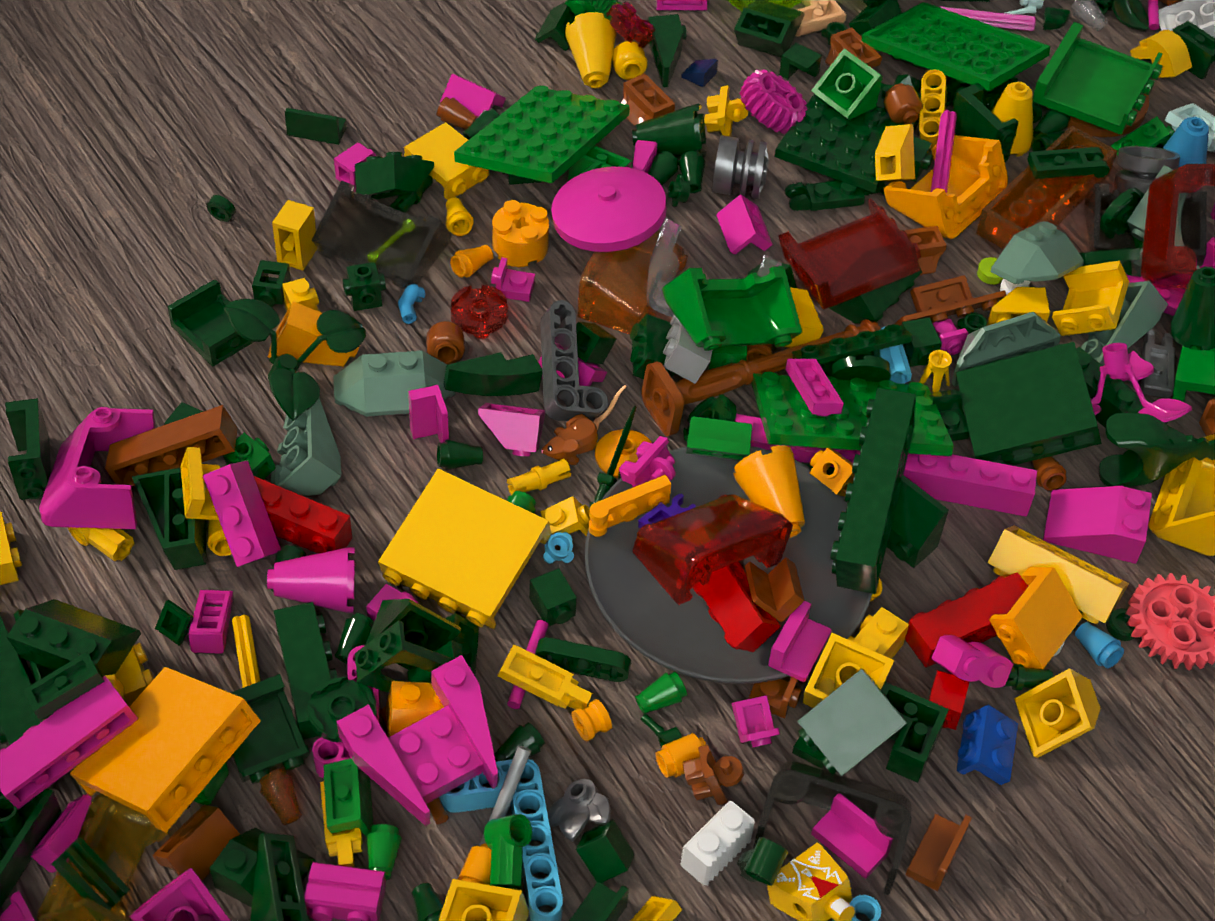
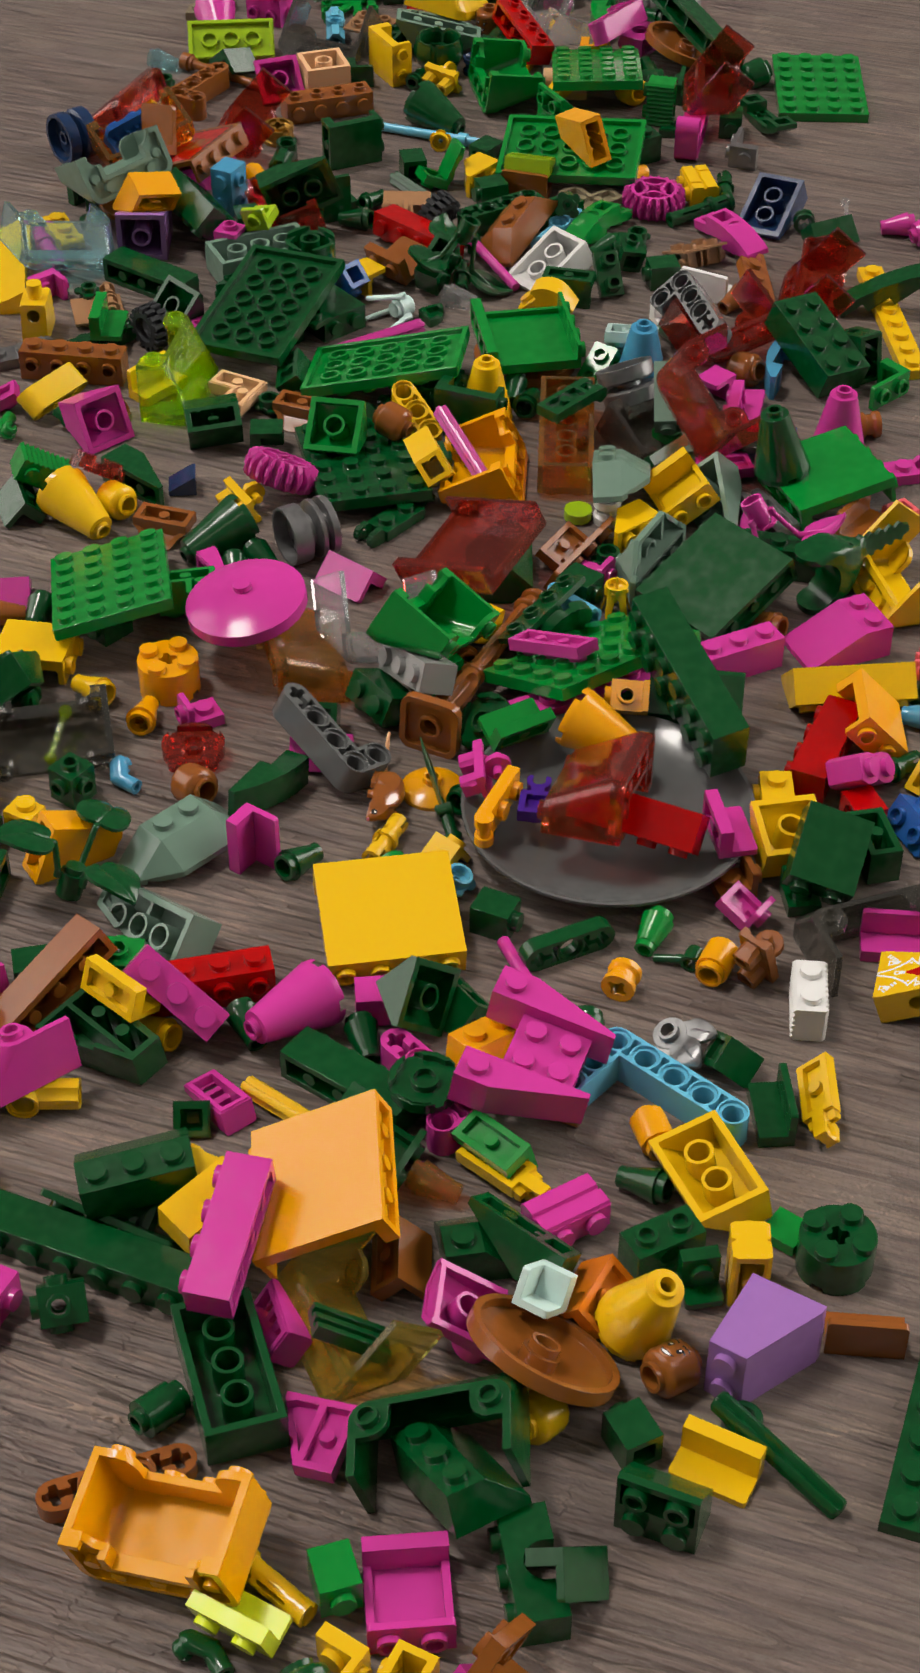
camera: 35 degrees left, 10 degrees down
(63, 685) = (196, 1183): dark green panel -> none
(383, 848) = (556, 1163): green cone -> none
(392, 648) = (441, 996): dark green panel -> none
(506, 839) = (662, 1087): green piece -> none
(510, 784) = (623, 1062): light grey bar -> none
(514, 426) = (327, 813): slope -> none
(543, 679) = (561, 970): yellow hinge -> none
(762, 862) = (862, 986): dark green piece -> none
(777, 591) = (682, 792): dark orange panel -> none
(1119, 211) = (643, 416): dark green tile -> none

